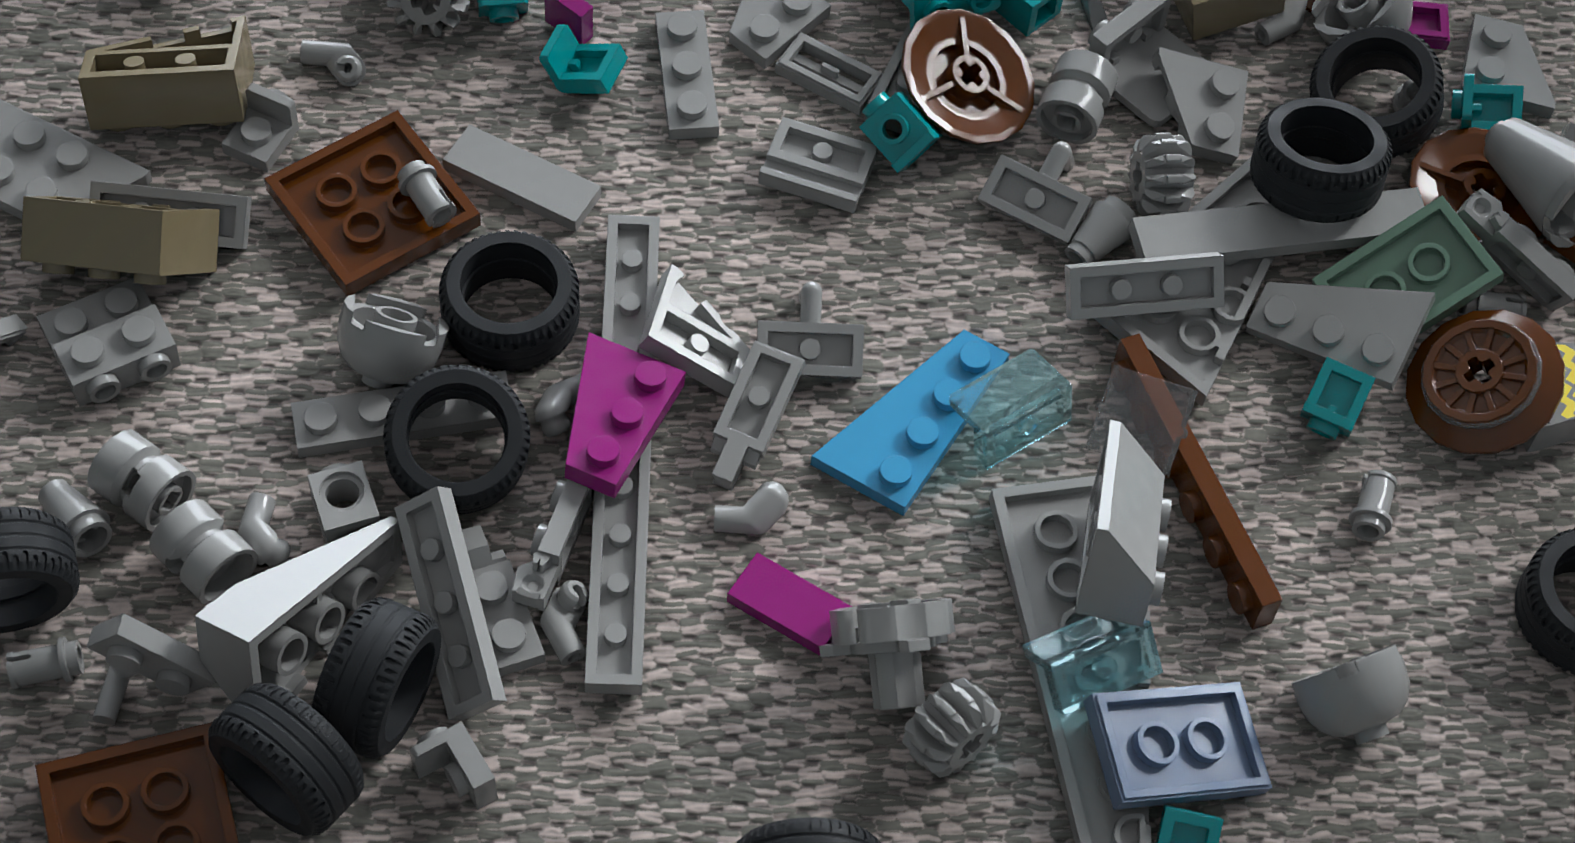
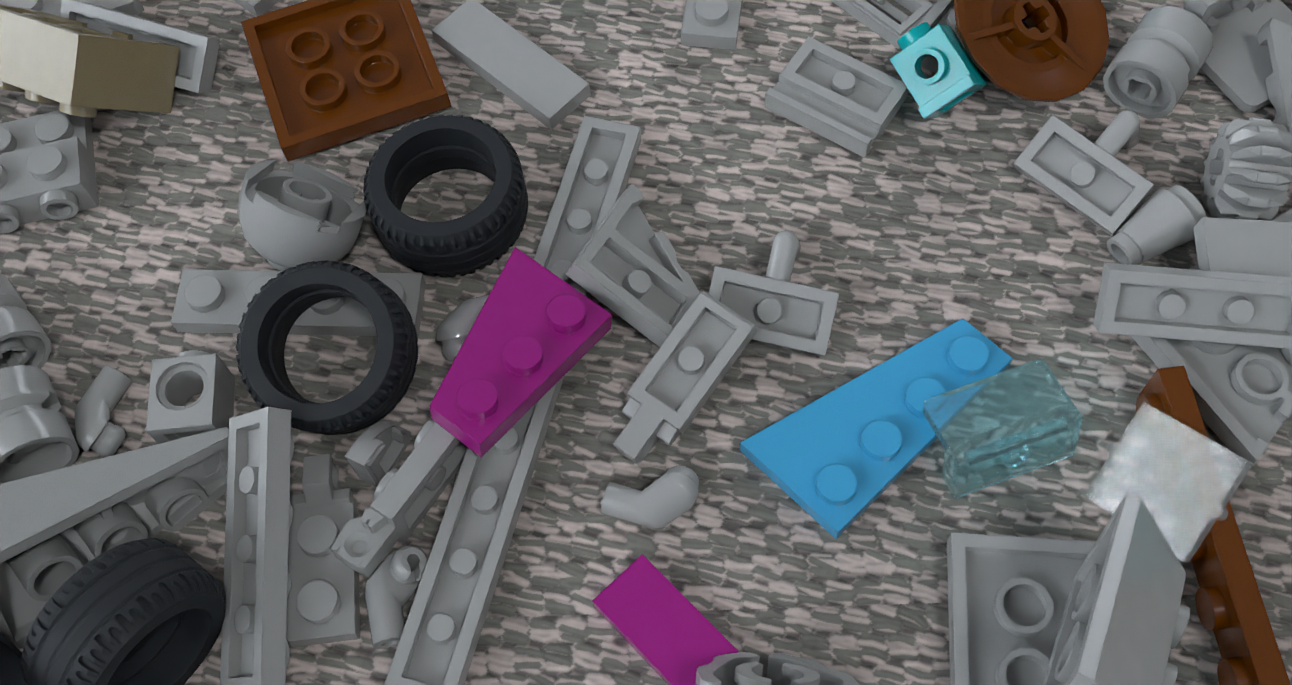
camera: 25 degrees right, 5 degrees up
(420, 183) = (388, 50): light grey pin -> none
(517, 519) = (378, 451): none -> light grey tile

